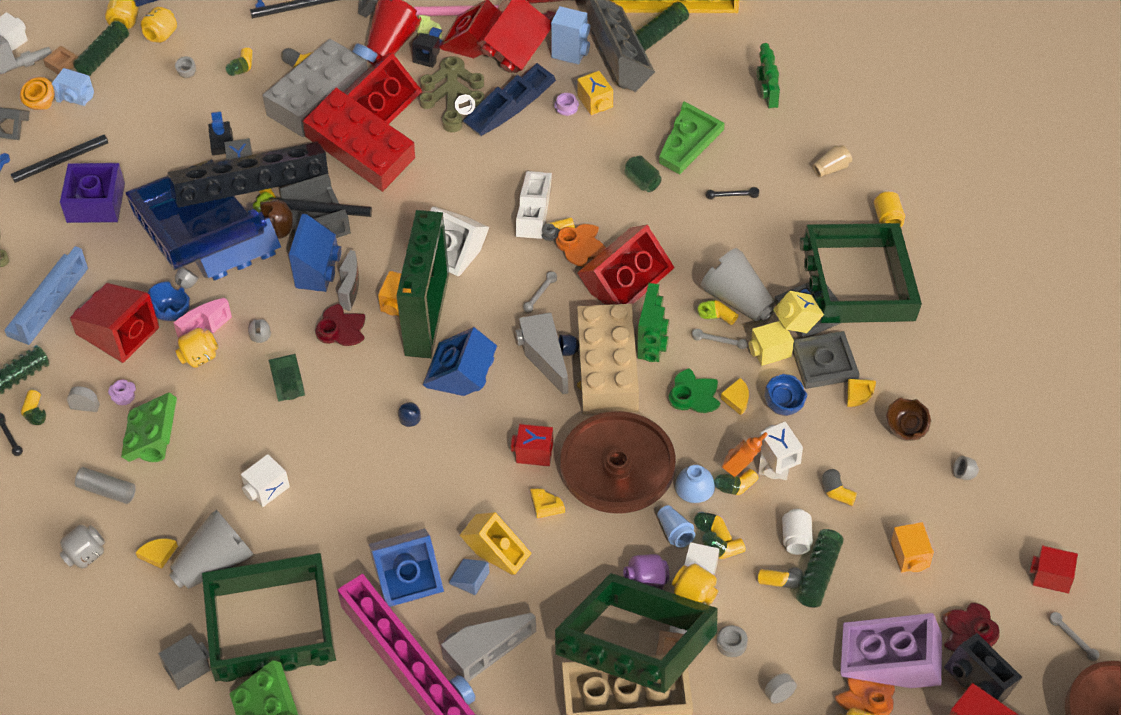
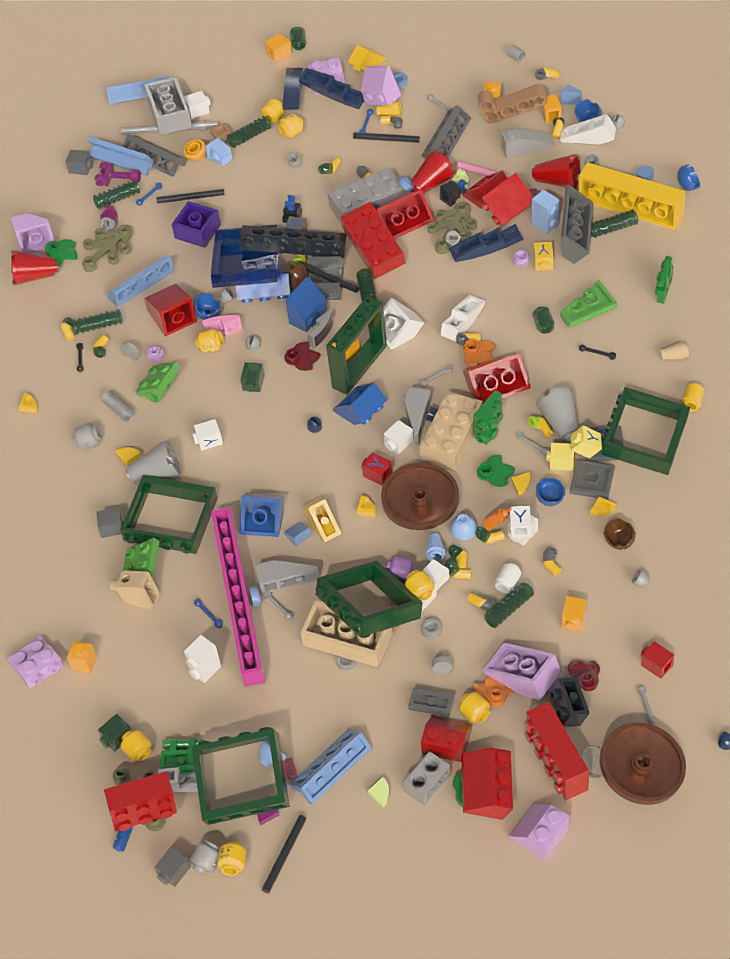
camera: 30 degrees right, 0 degrees up
(385, 209) = (366, 284): none -> clear green piece
(475, 682) = (268, 596): none -> light grey hinge
(539, 391) = (398, 437): none -> white brick

